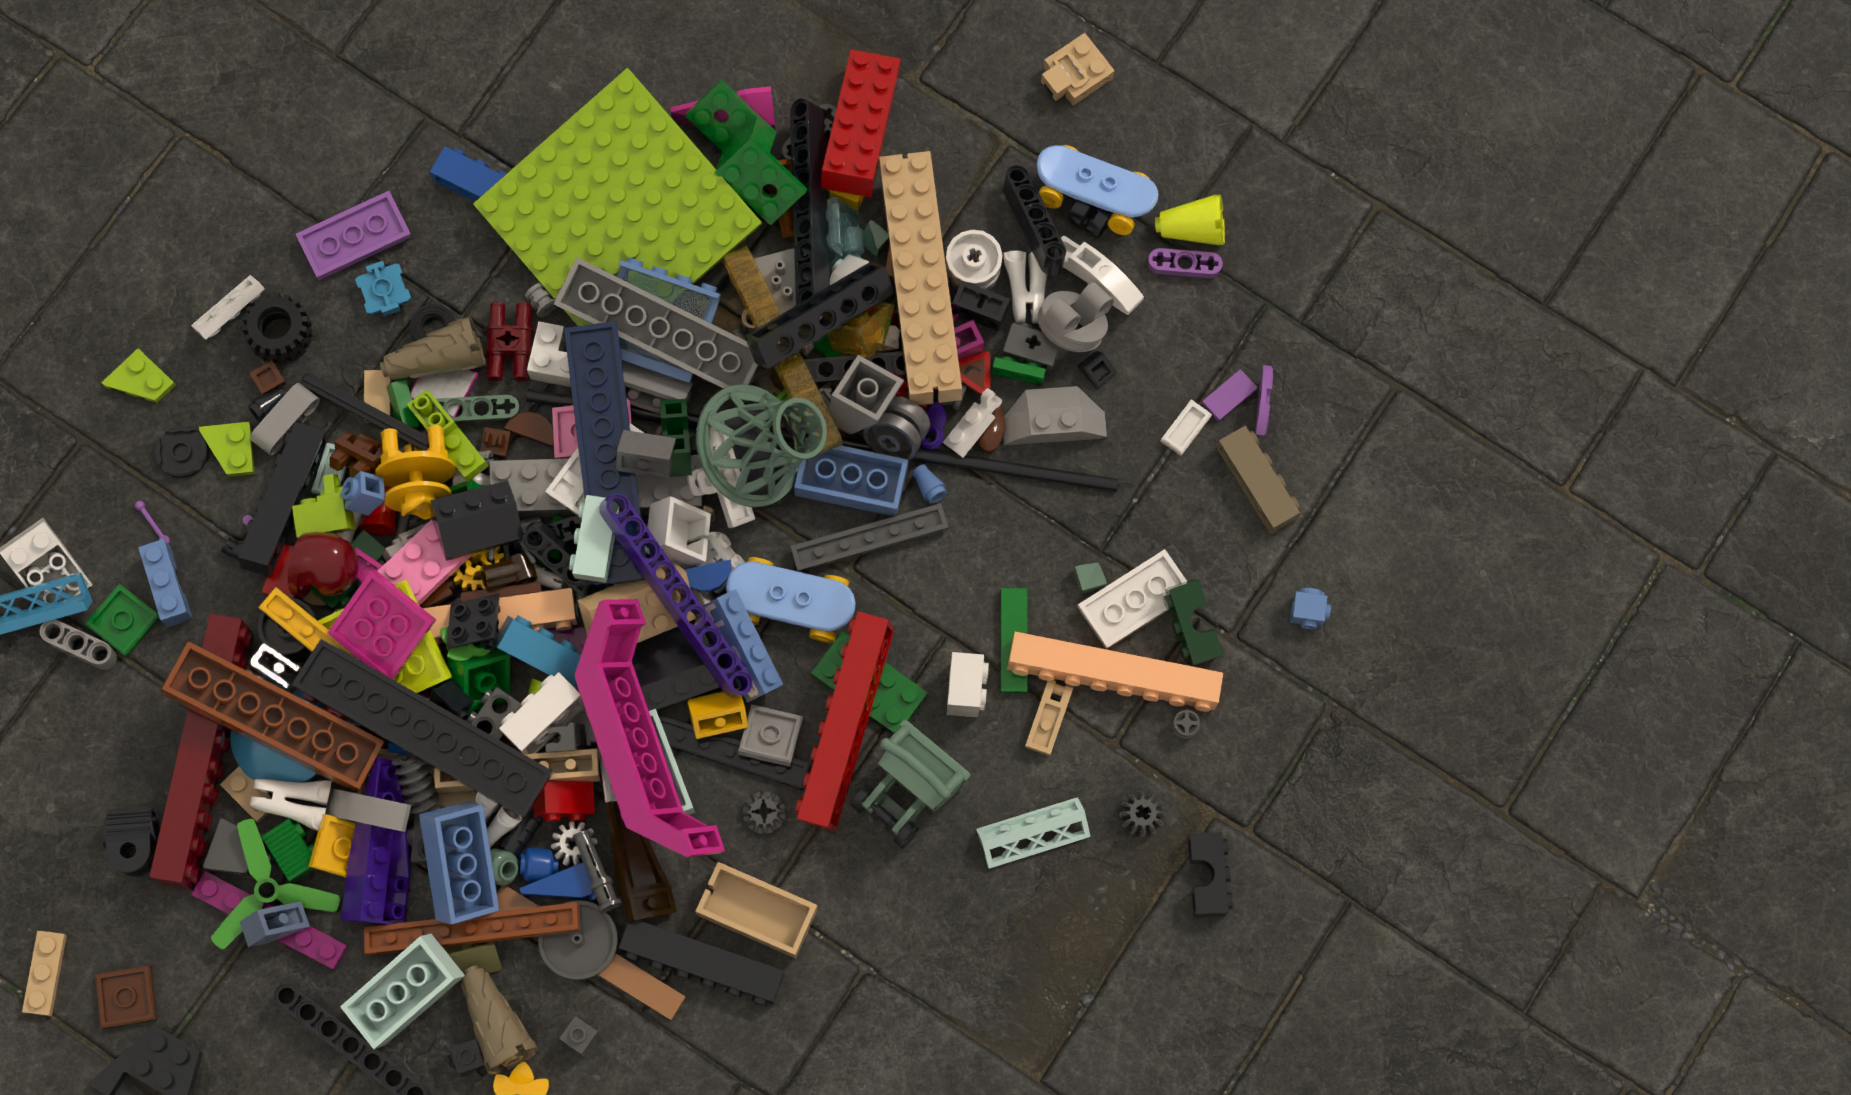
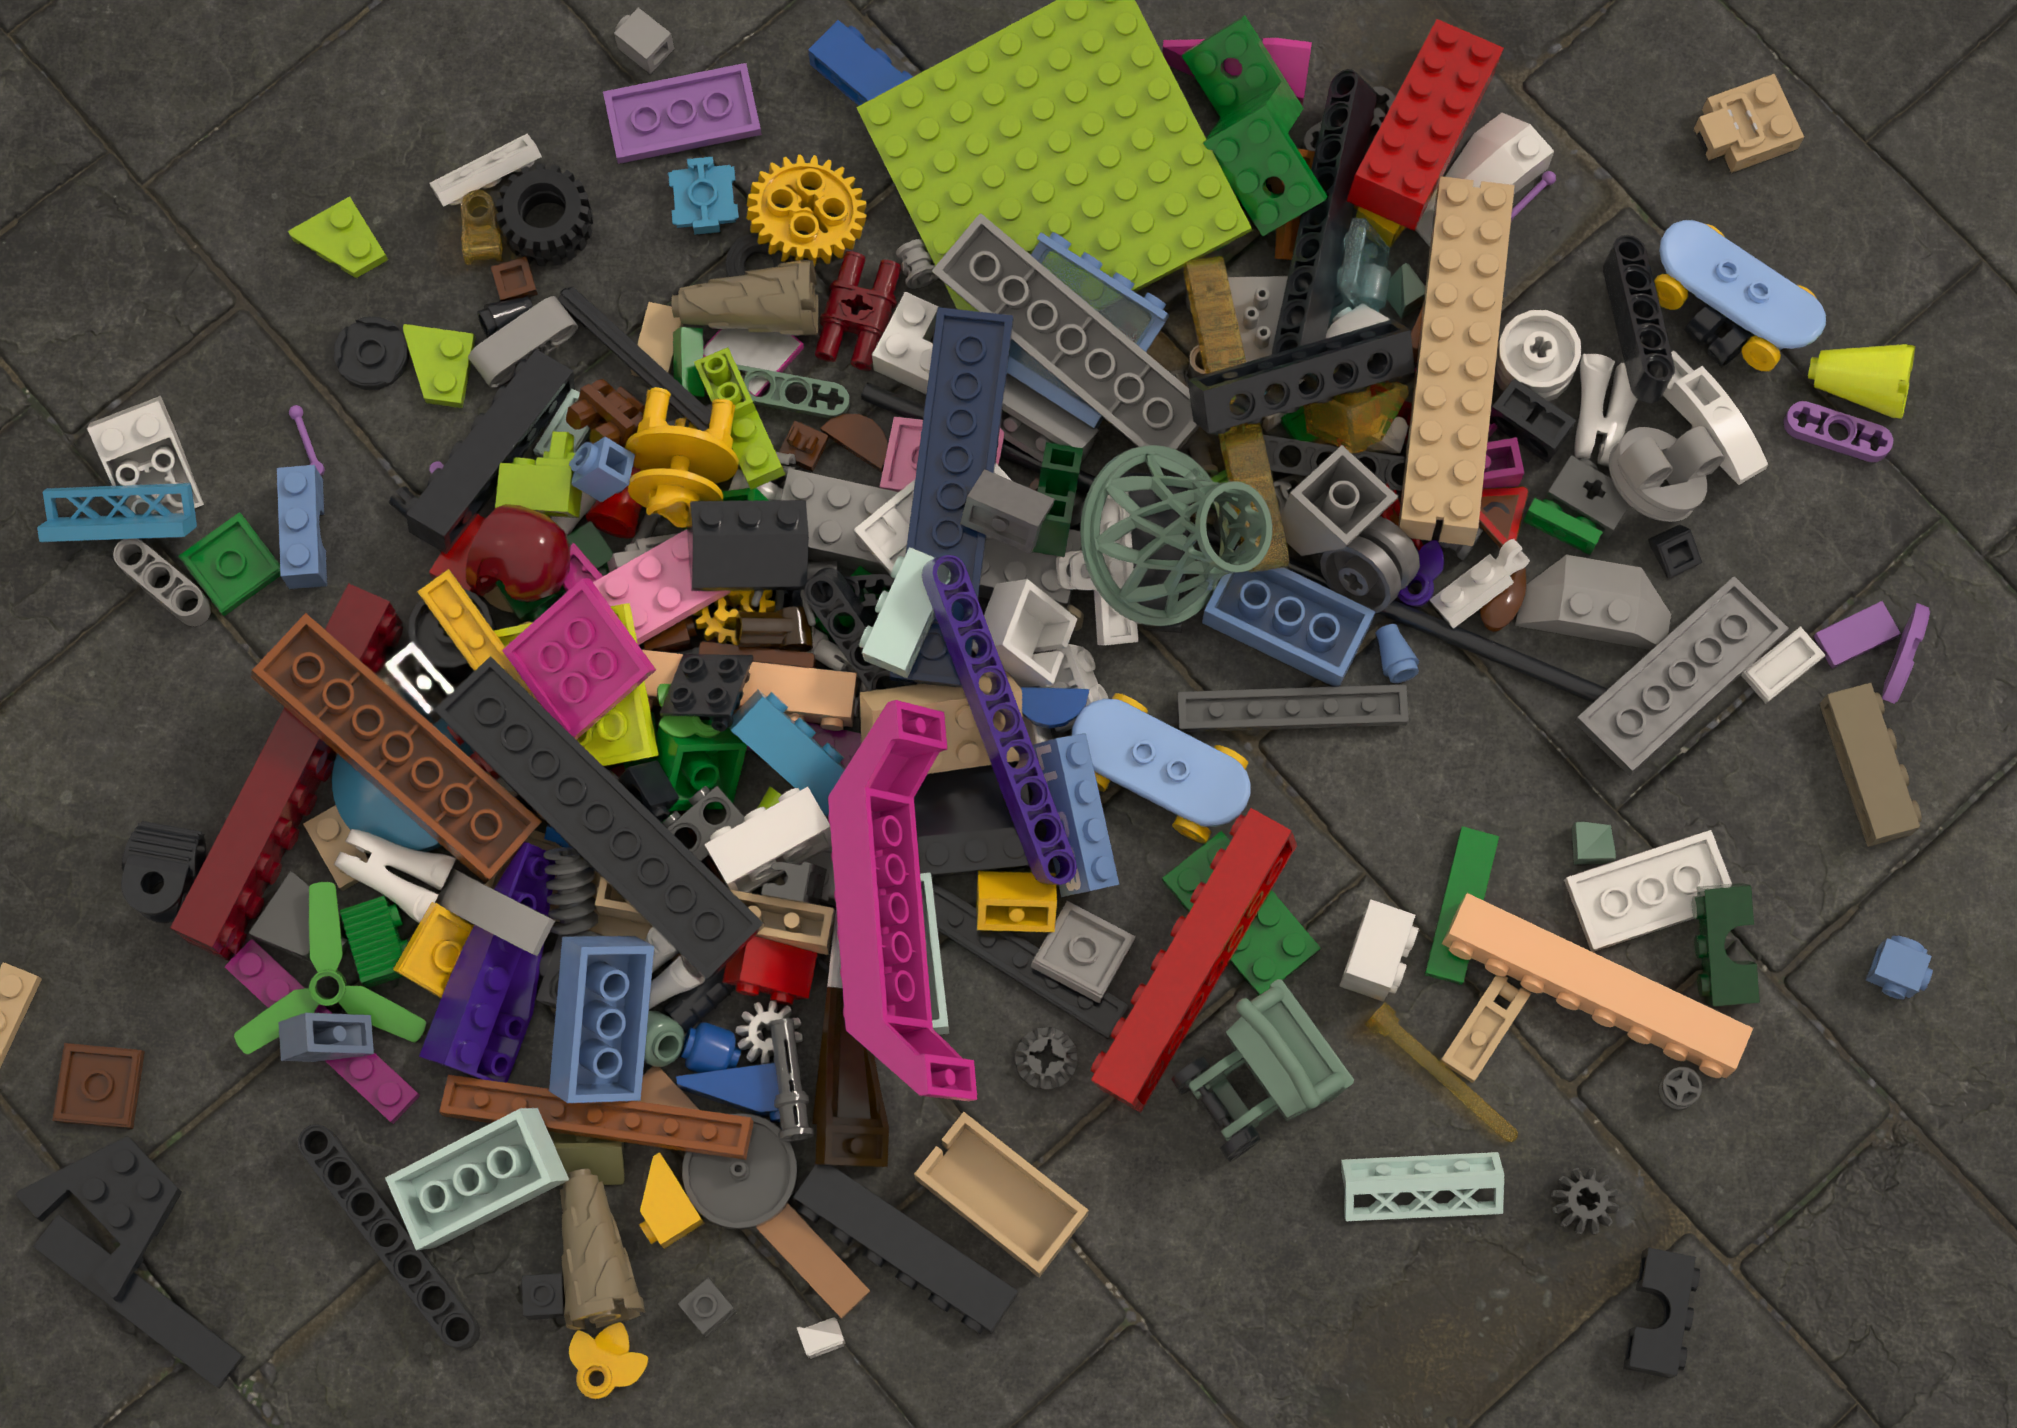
camera: 20 degrees right, 0 degrees up
(237, 352) = (480, 235): none -> clear yellow piece
(314, 191) = (643, 40): none -> light grey brick
(456, 281) = (806, 210): none -> yellow gear
(535, 976) = (666, 1206): none -> yellow slope
(661, 1036) = (821, 1337): none -> white slope
(915, 130) = (1497, 153): none -> white wedge
(952, 138) = (1548, 178): none -> medium lavender hinge
(983, 731) = (1386, 1023): none -> clear yellow piece
(1120, 451) = (1681, 675): none -> flat silver plate

